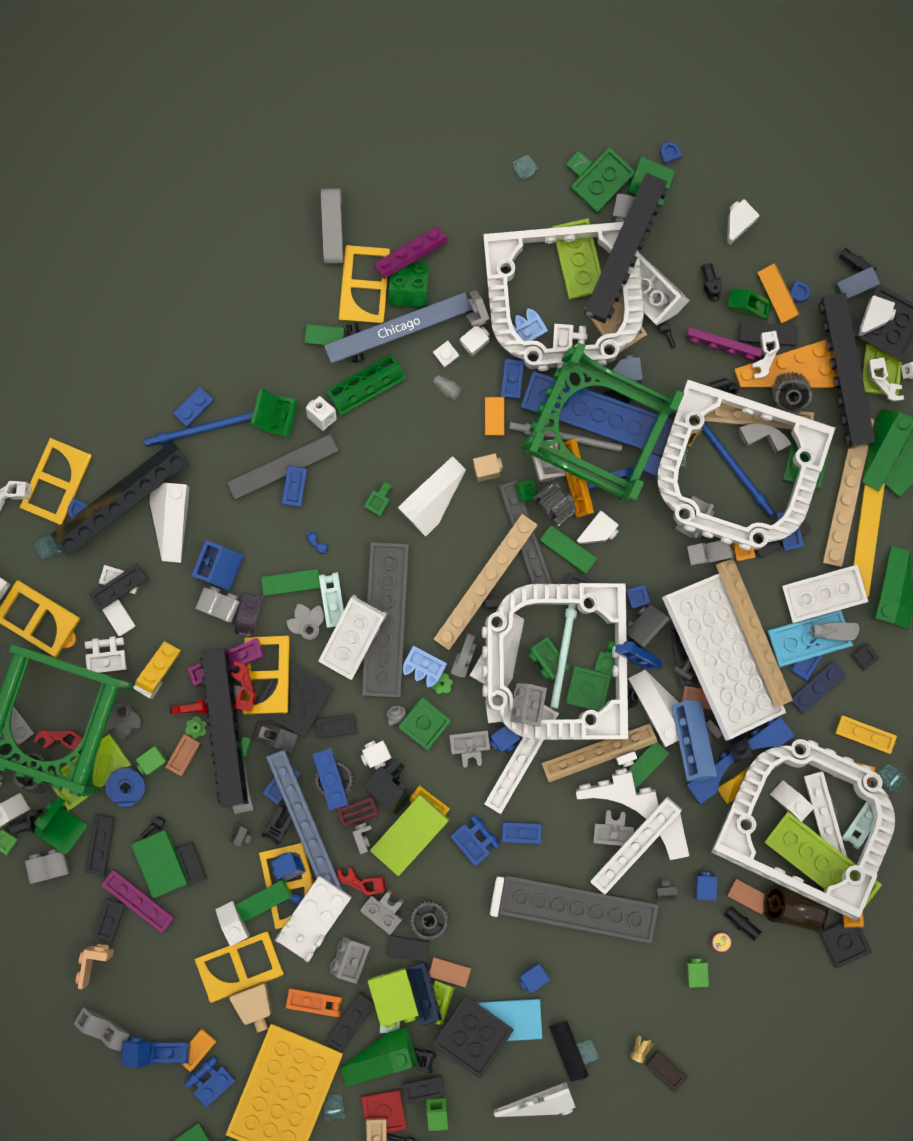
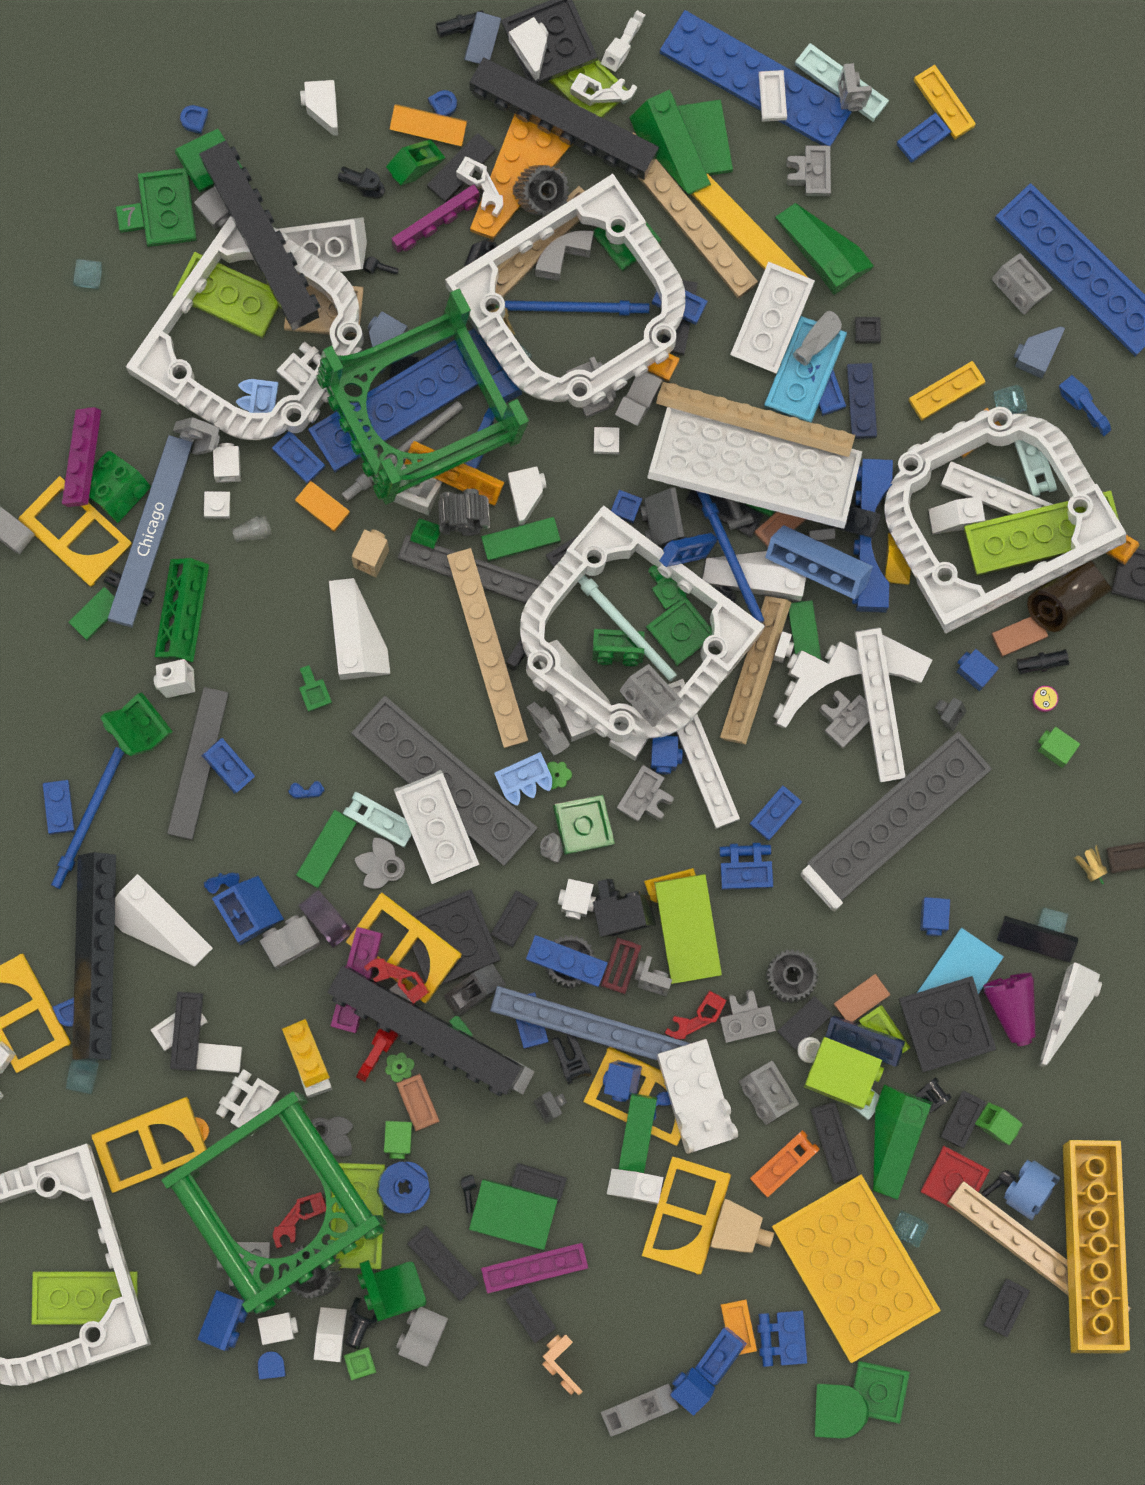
camera: 60 degrees left, 5 degrees down
(219, 533) = (214, 883): none -> blue piece
(394, 963) = (808, 1049): none -> white plate
(516, 1068) = (1014, 1006): none -> magenta cone
(669, 553) = (606, 440): none -> white plate
(674, 651) = (711, 512): none -> blue bar

